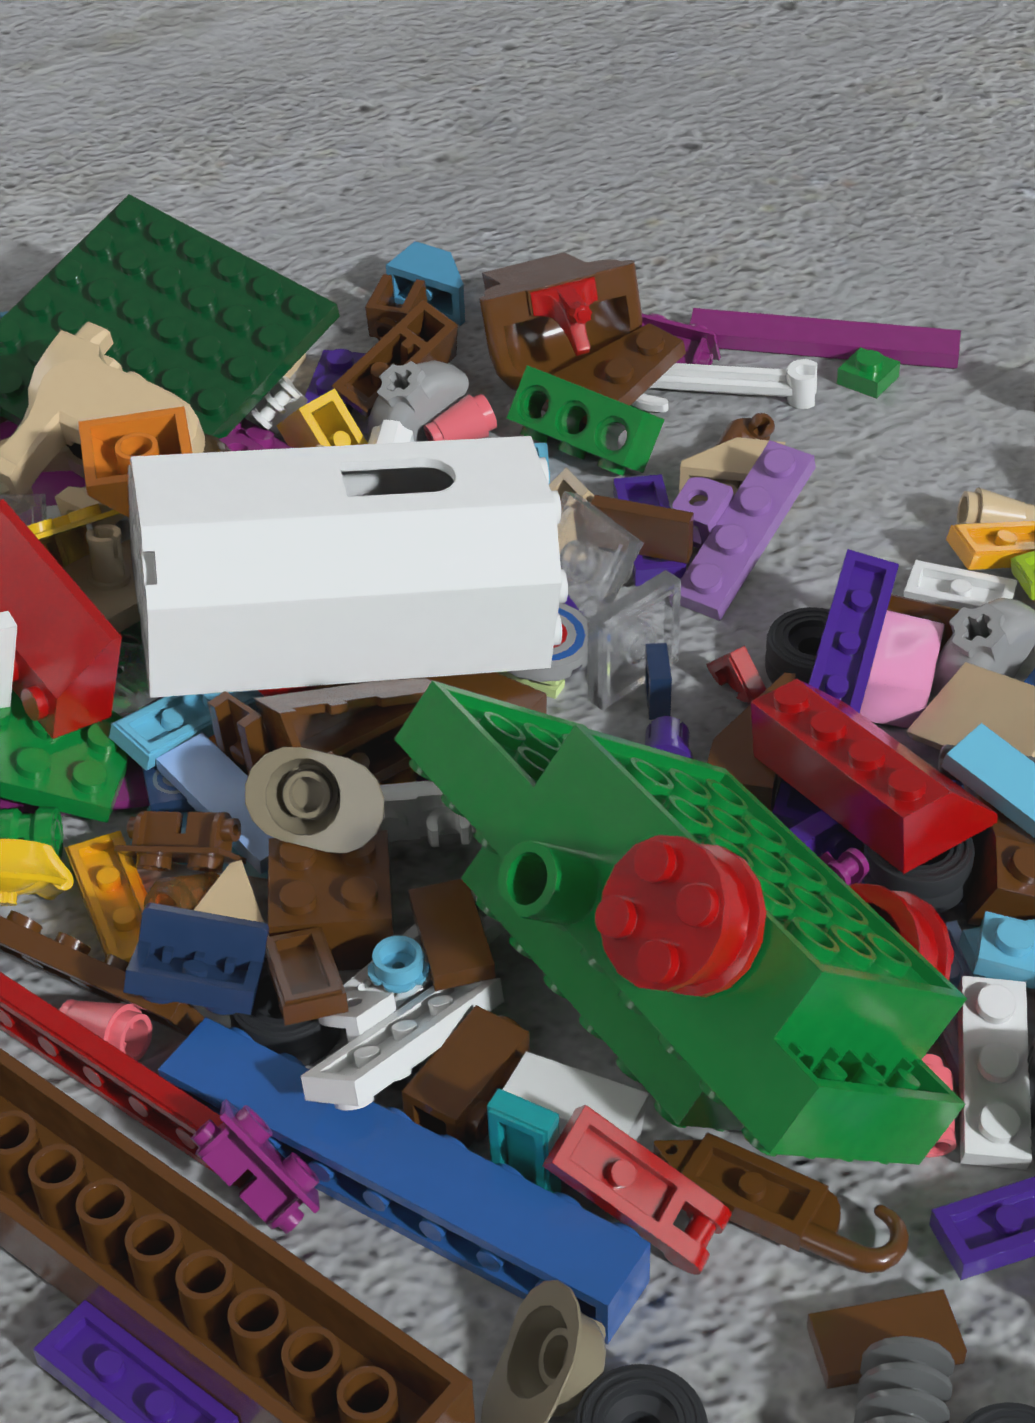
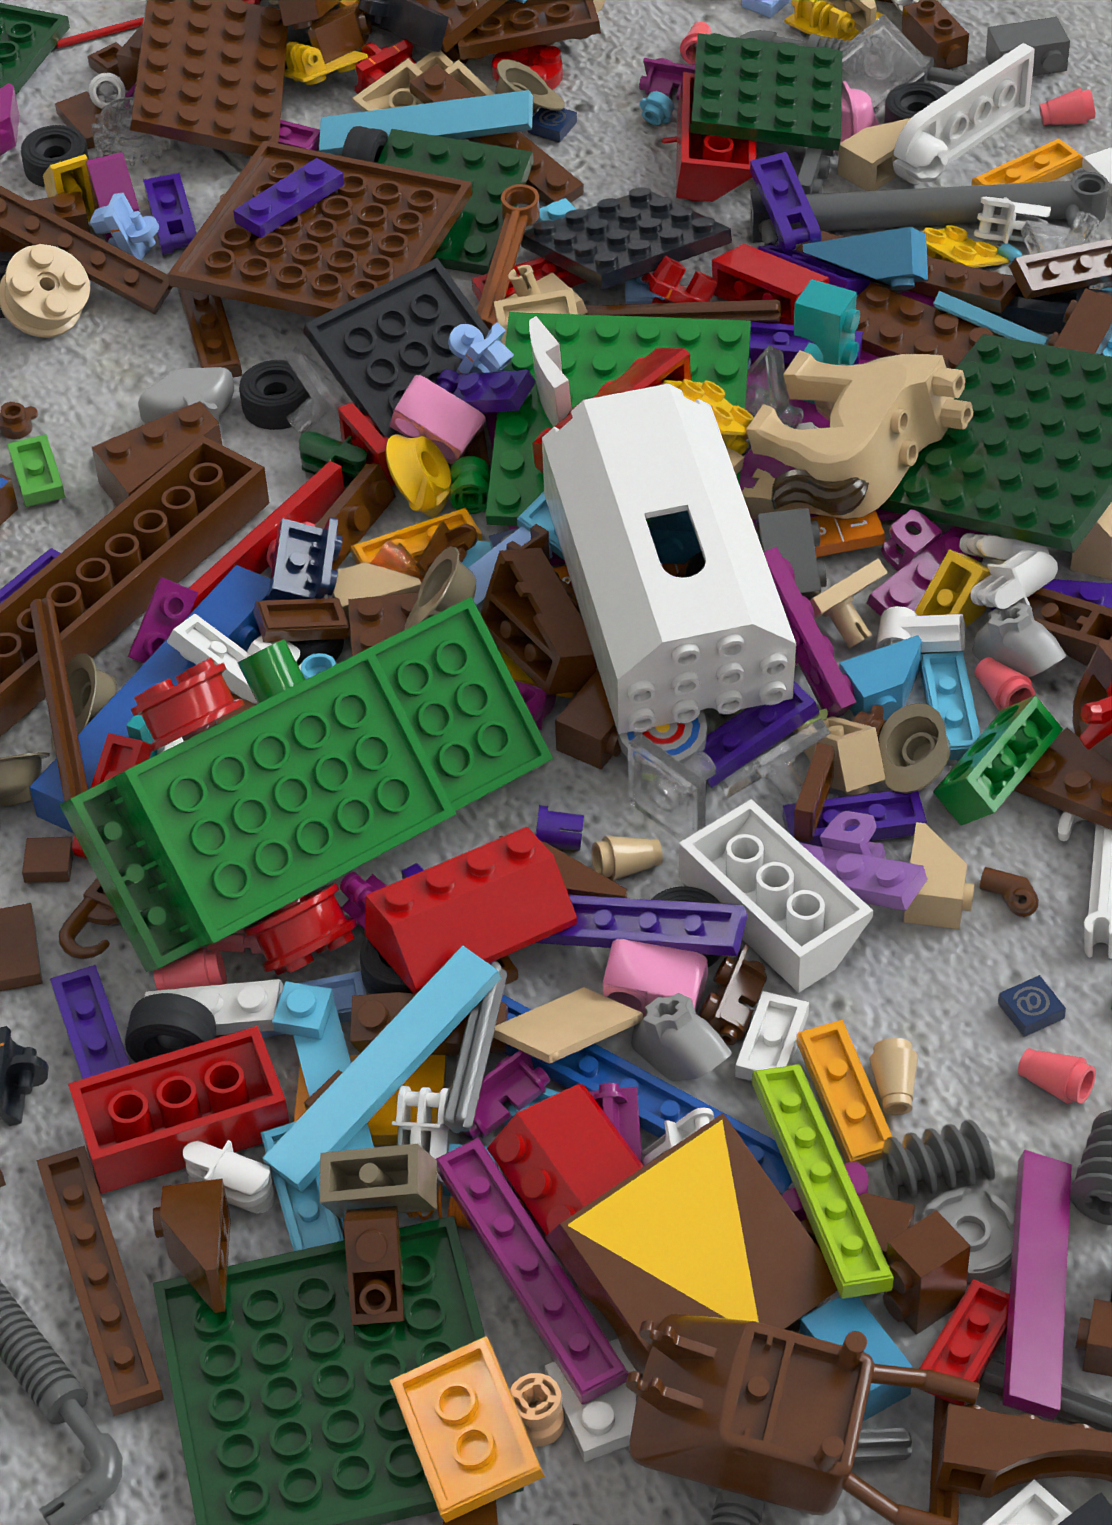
camera: 90 degrees right, 5 degrees up
(113, 440) = (761, 428): orange slope -> none
(354, 379) = (1015, 579): none -> white arm
(418, 1272) = (88, 689): none -> dark tan piece
(455, 1252) = (58, 698): none -> reddish brown axle
(590, 455) = (913, 748): none -> dark tan piece
(657, 680) = (641, 820): dark blue tile -> none
(706, 699) = (625, 856): none -> tan cone
(710, 1308) = (47, 859): none -> reddish brown tile
(739, 672) = (653, 877): tile -> none
(771, 566) = (795, 907): none -> white slope
(886, 435) = (1031, 1005): none -> dark blue tile
(977, 416) = (1058, 1074): none -> coral cone

